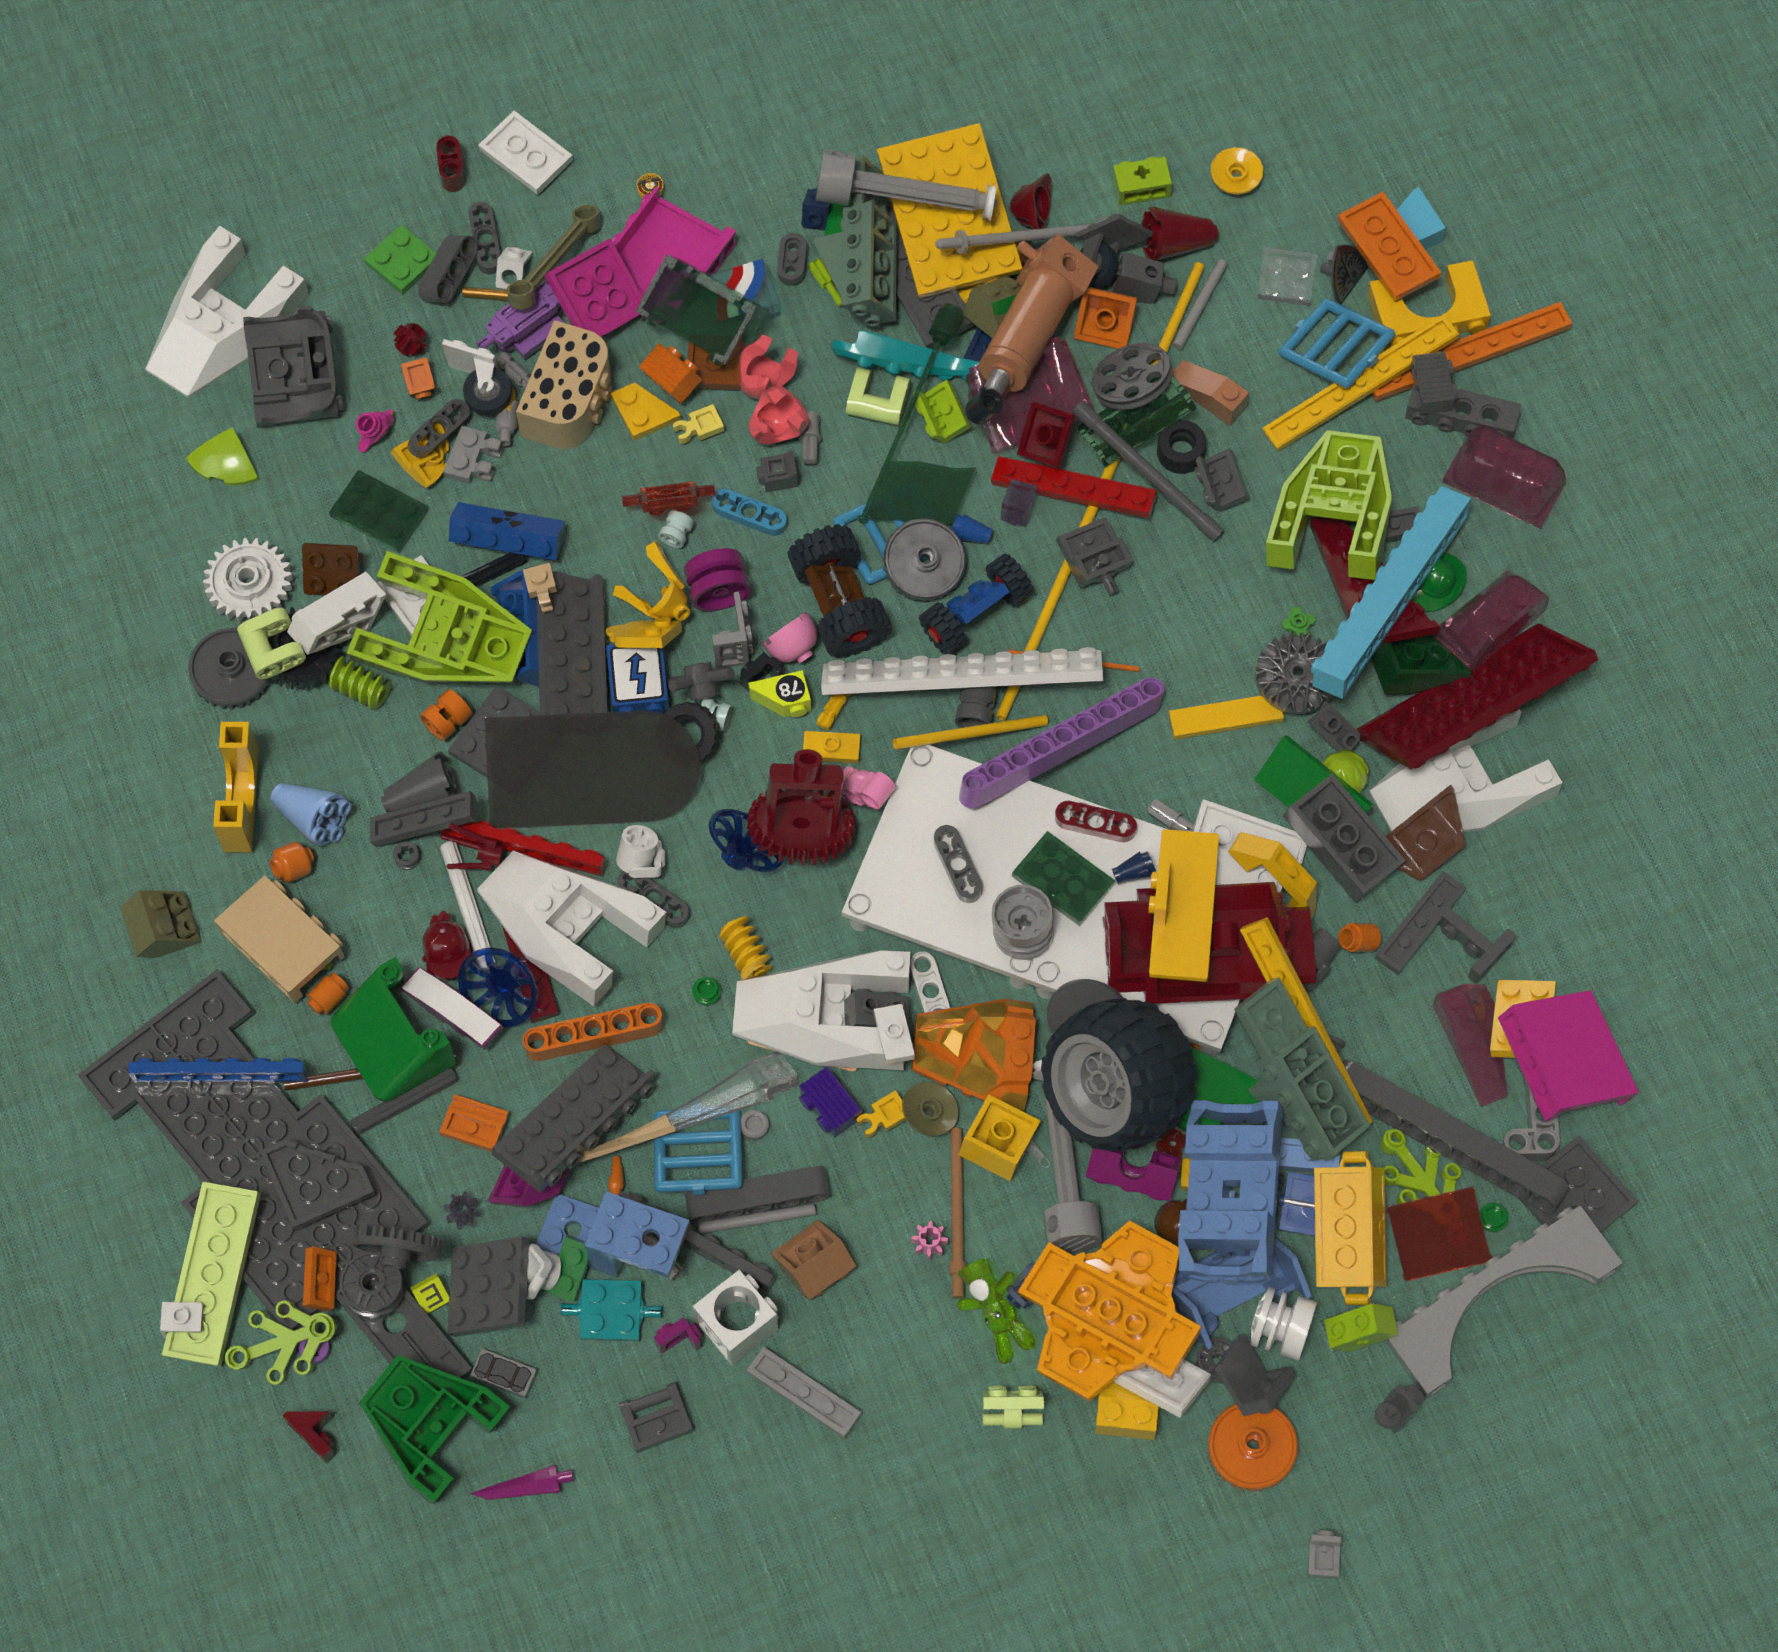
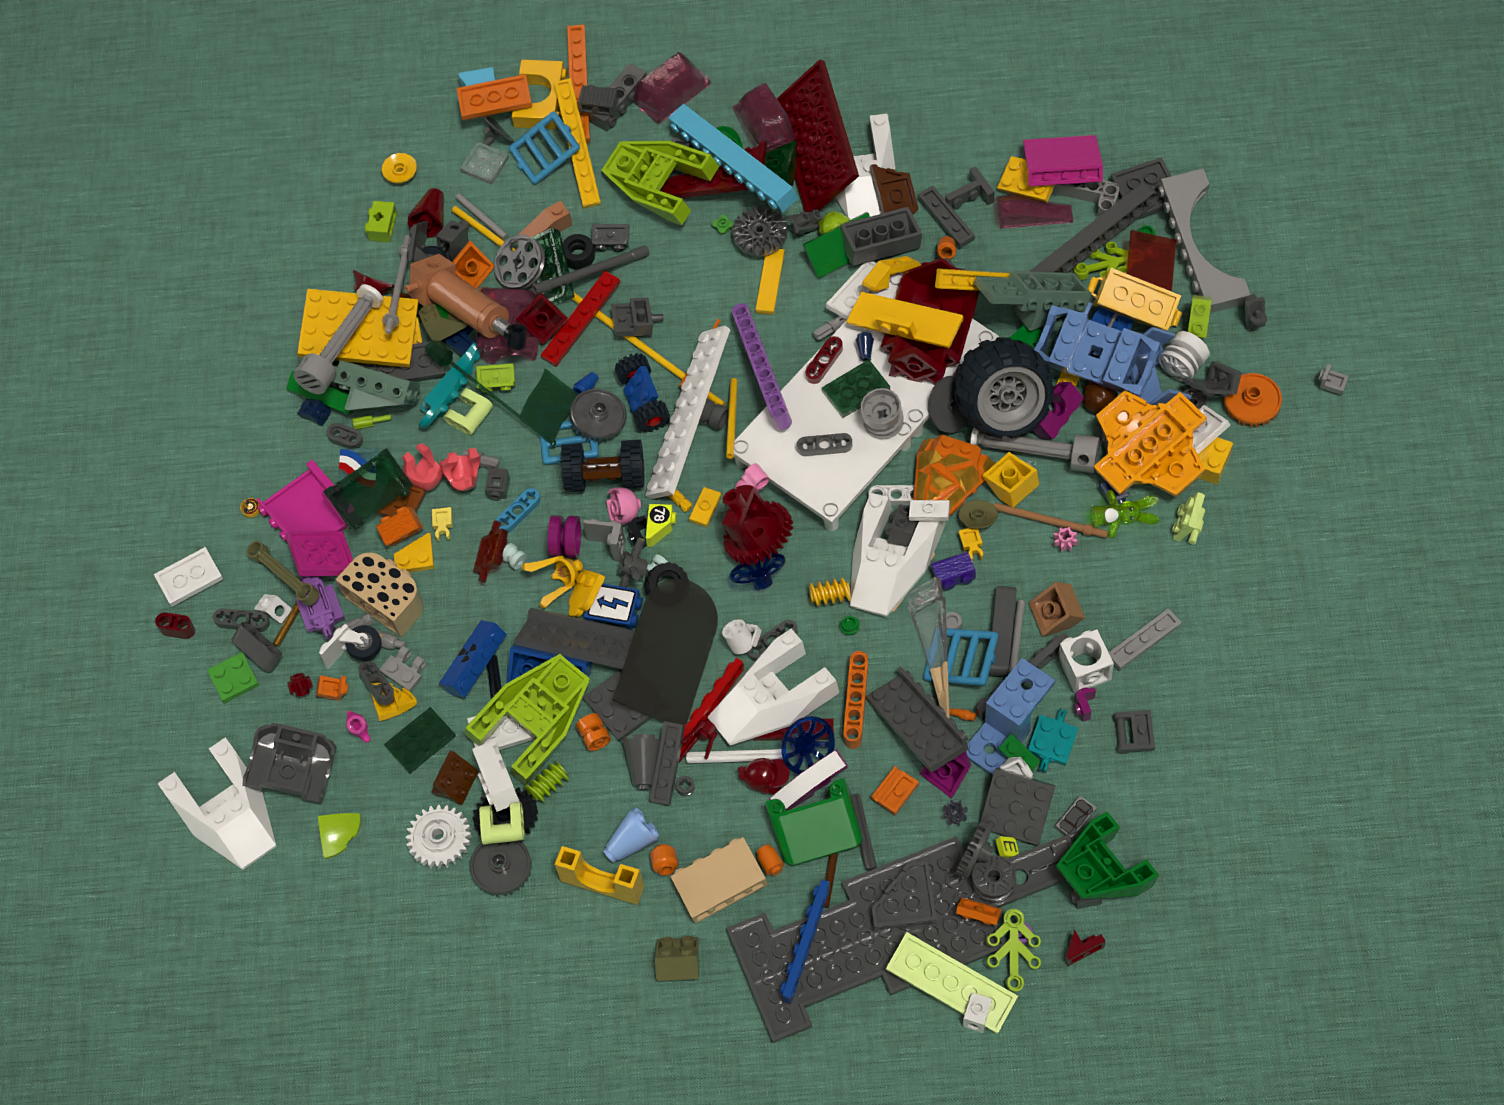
camera: 65 degrees left, 5 degrees down
(534, 1483) = (1157, 815): magenta bar -> none
(541, 583) = (527, 639): tan plate -> none
(1018, 502) = (578, 351): clear purple bracket -> none

